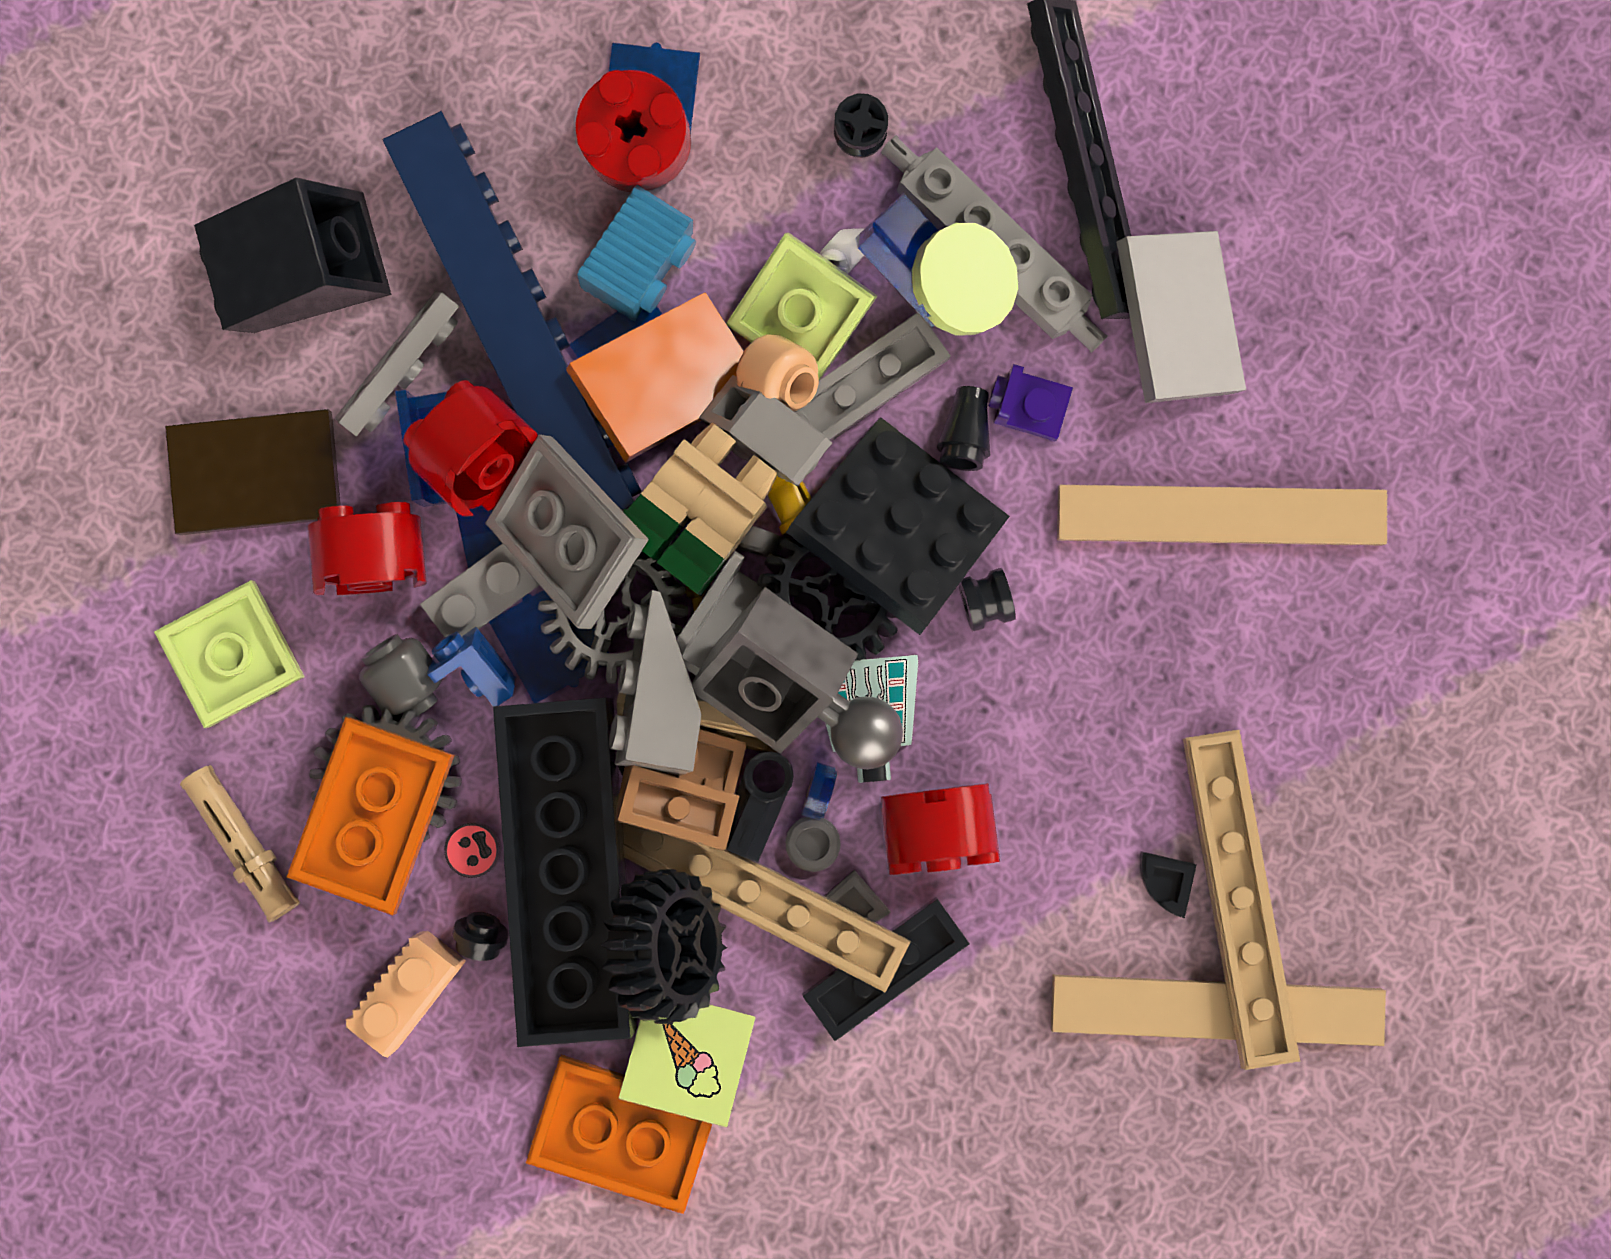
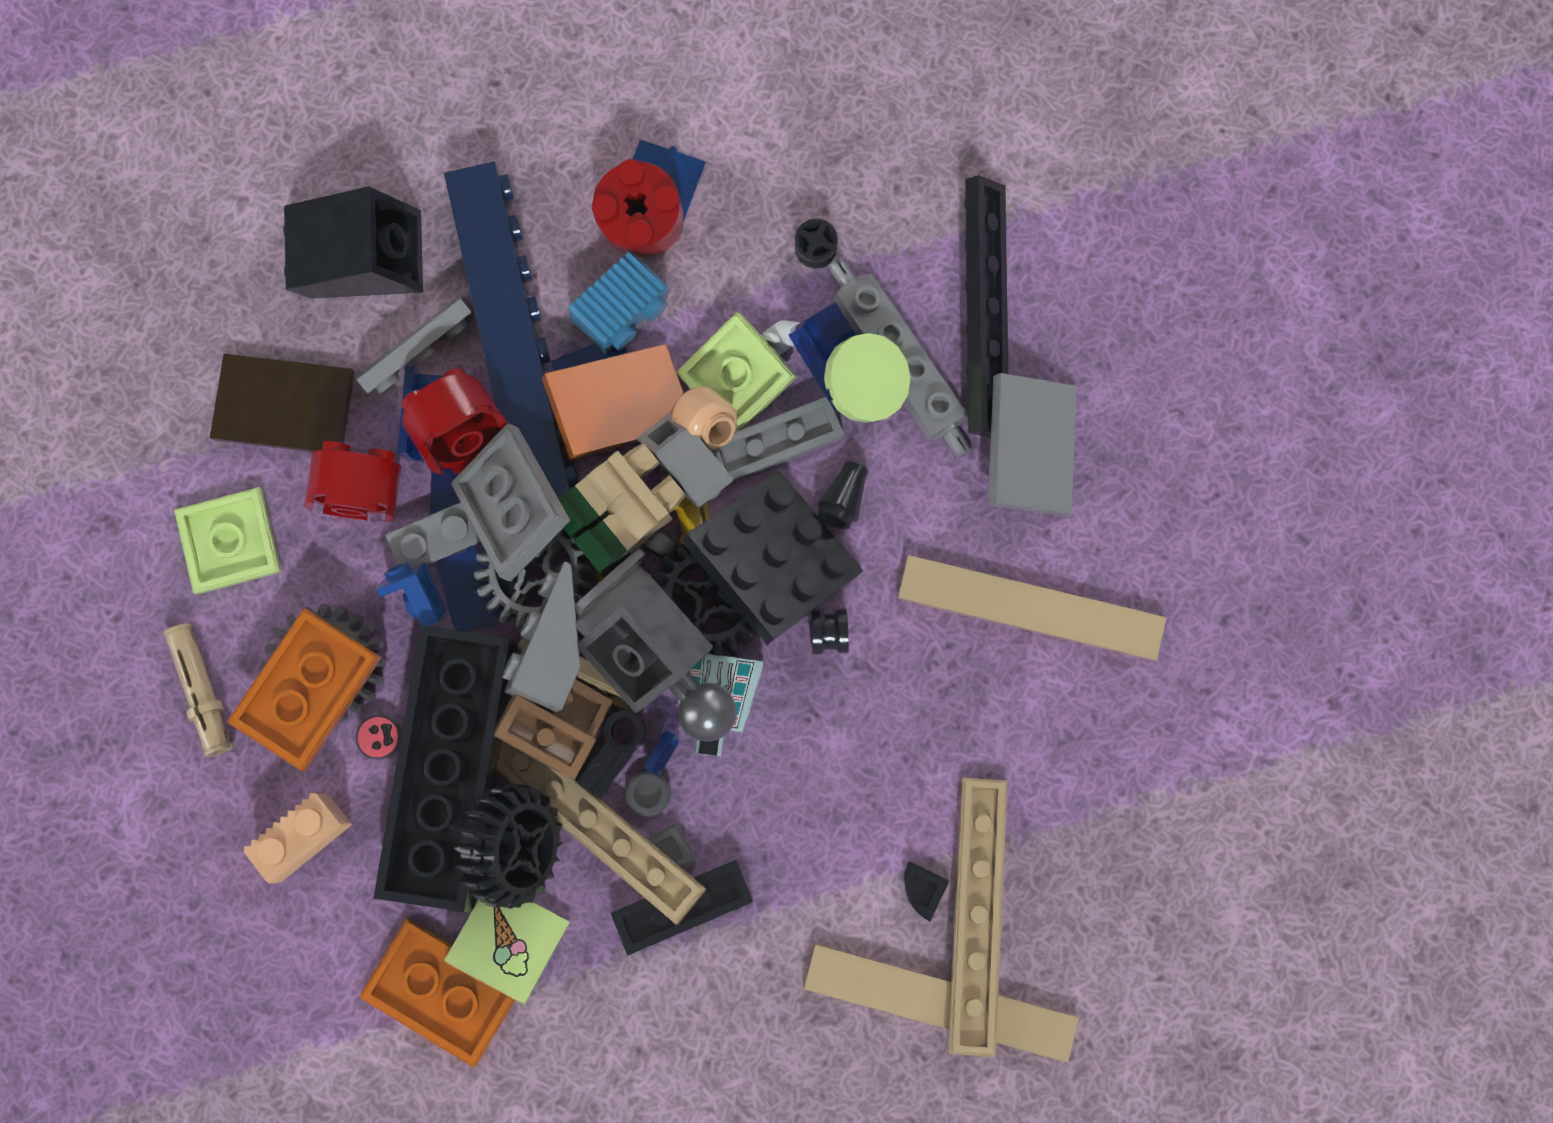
camera: 15 degrees right, 5 degrees down
(398, 676) = (353, 587): dark grey head -> none
(480, 936) = (367, 806): black plate -> none
(939, 829) = (749, 802): red brick -> none
(1030, 403) = (899, 486): dark purple bracket -> none

